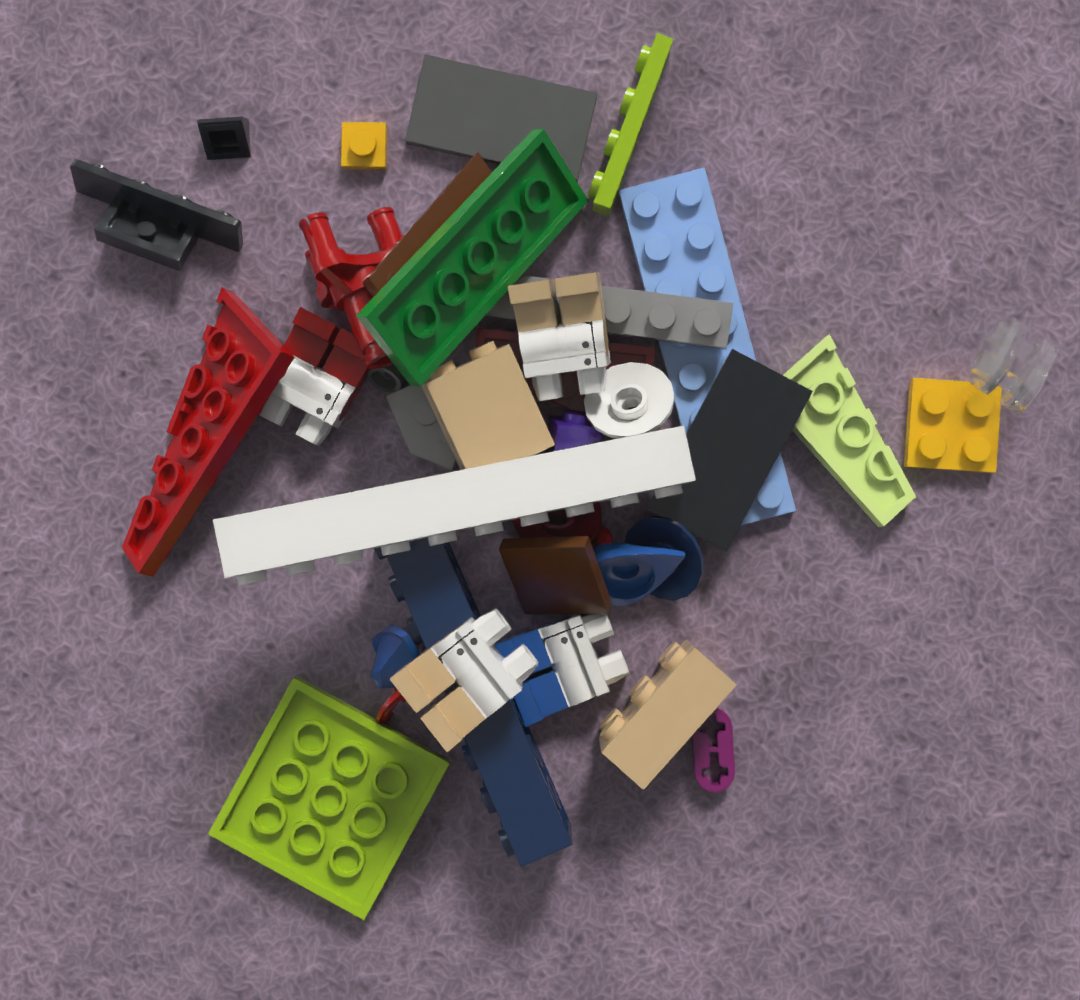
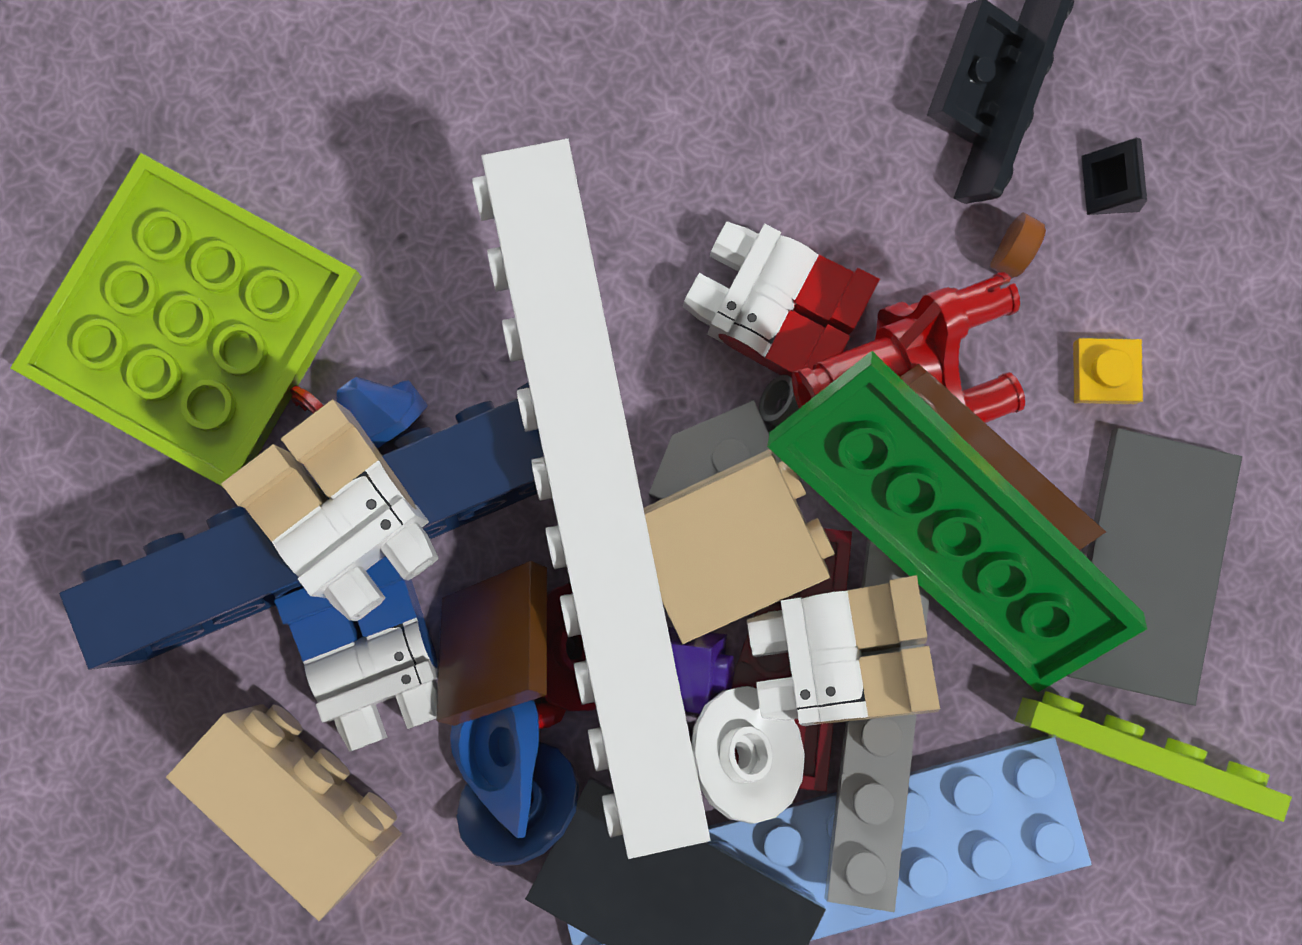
camera: 90 degrees right, 5 degrees down
(208, 423) = (717, 155): red wing -> none
(274, 207) = (1019, 245): none -> dark orange tile
(724, 749) = (229, 891): magenta beam -> none

